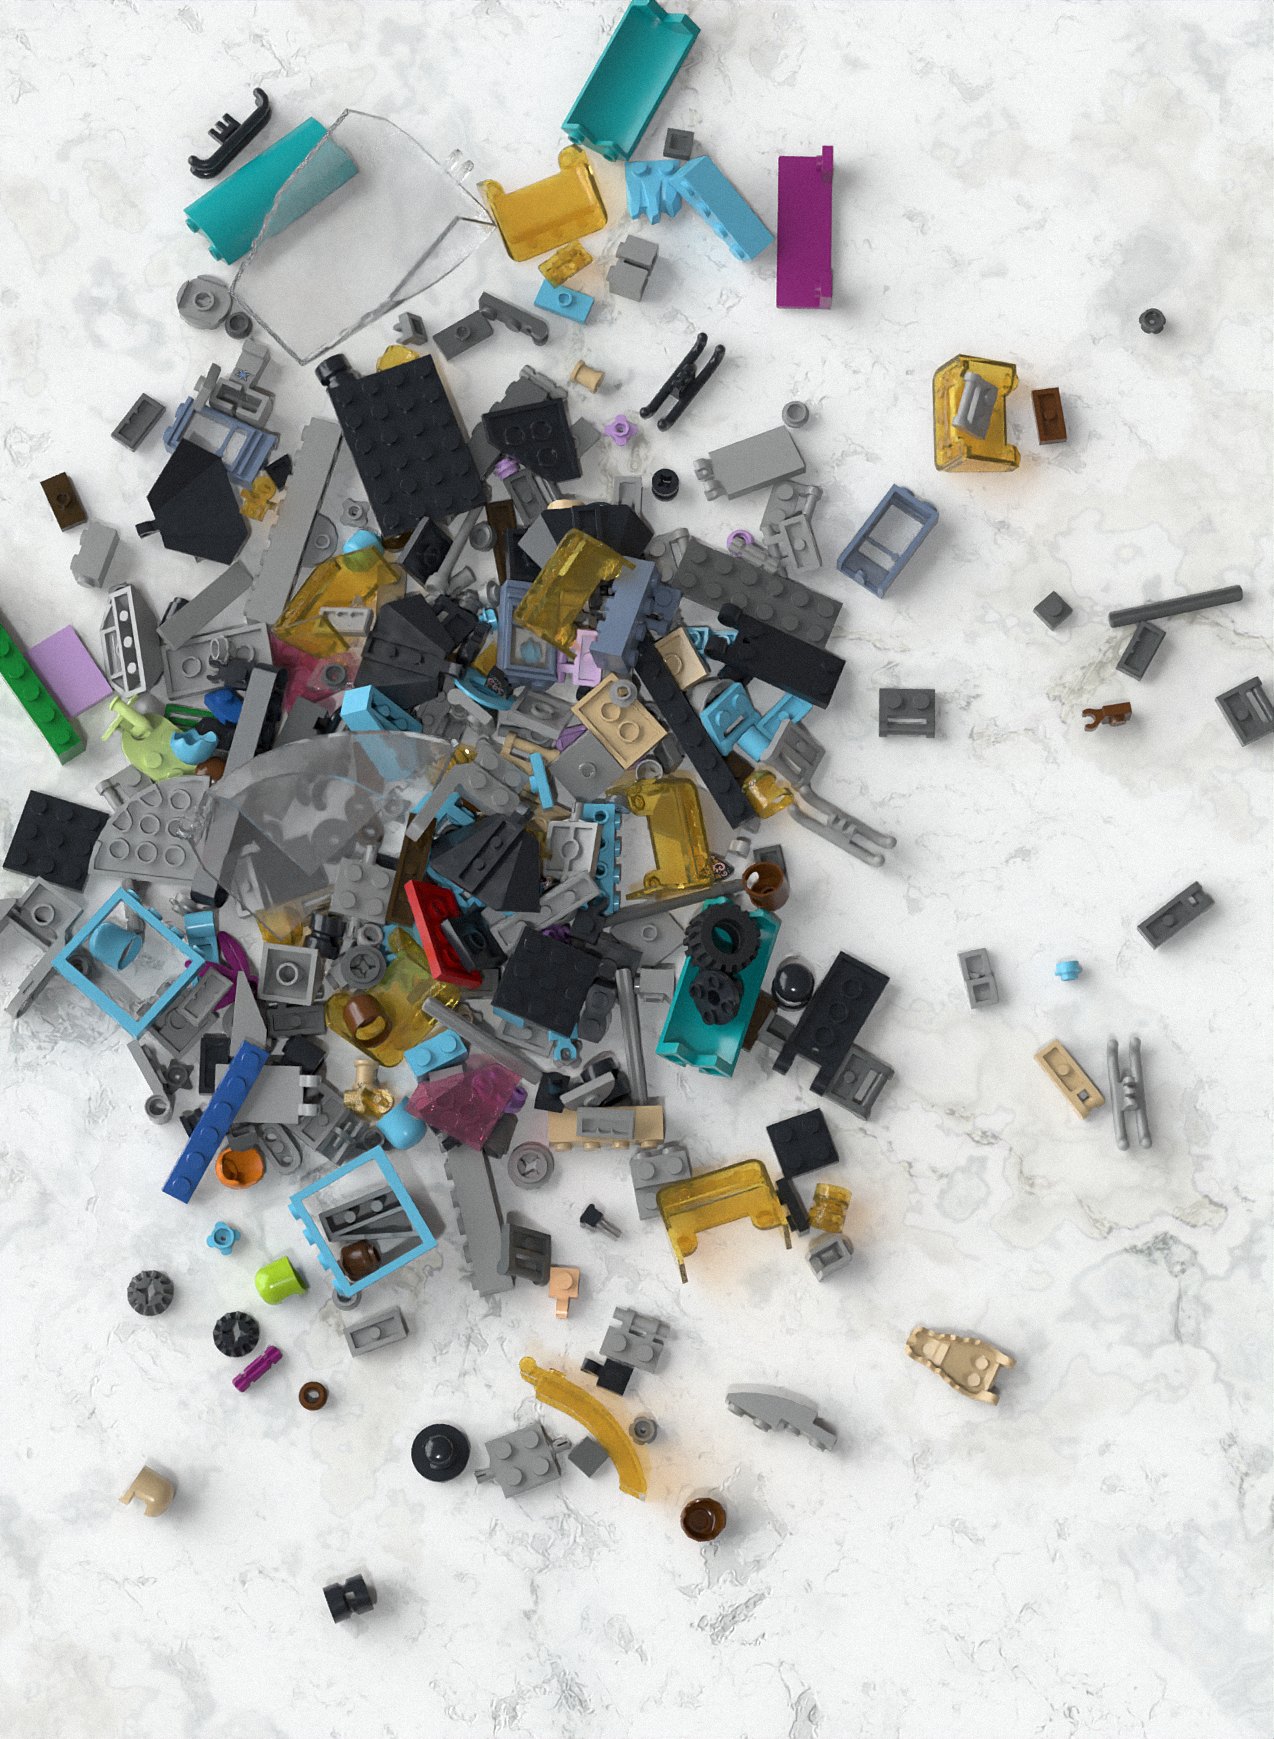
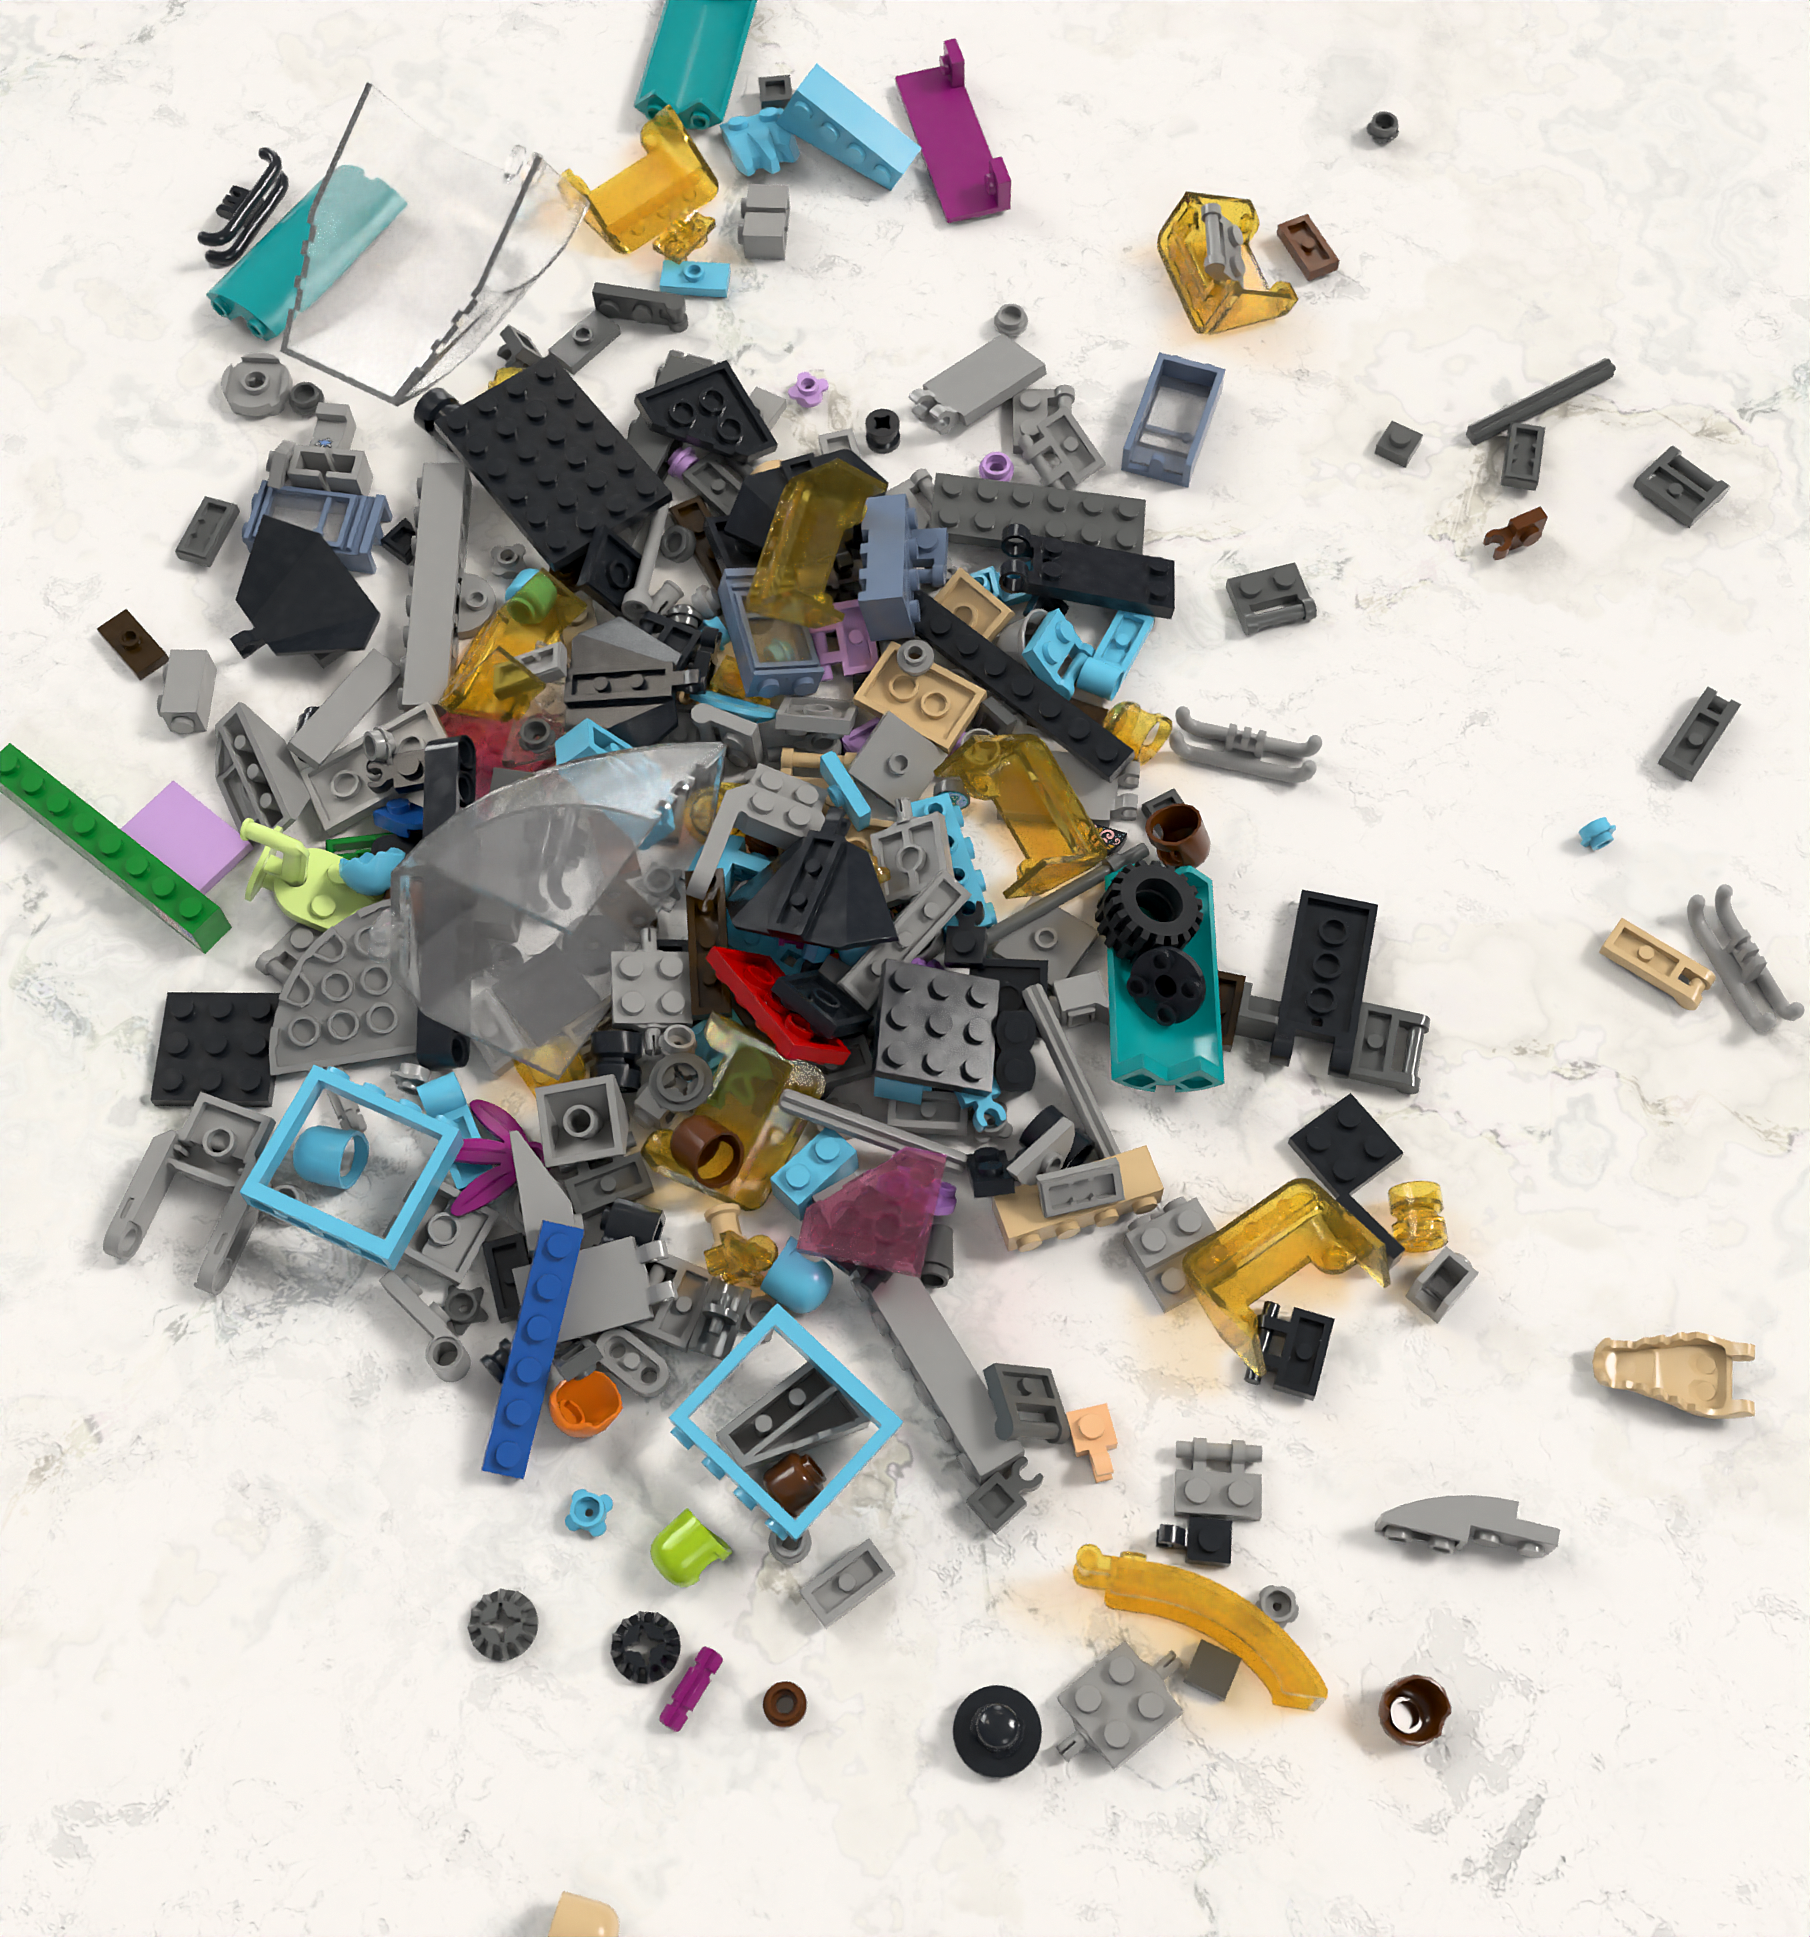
camera: 15 degrees left, 10 degrees down
(204, 997) = (471, 1184): light grey plate -> none
(258, 500) = (381, 572): clear yellow hips -> none
(489, 1310) = (1001, 1499): none -> dark grey plate
(497, 683) = (751, 689): black tile -> none
(528, 1154) = (982, 1269): light grey gear -> none
(587, 376) = (748, 343): tan bush -> none
(593, 1220) = (1102, 1331): black piece -> none
(683, 383) = (866, 323): black piece -> none
(720, 1273) = (1302, 1353): none -> black plate
(754, 555) = (1020, 471): light grey axle -> none
(794, 984) = (1259, 943): black helmet -> none
(798, 748) = (1156, 667): light grey plate -> none
(978, 978) = (1485, 877): light grey slope -> none

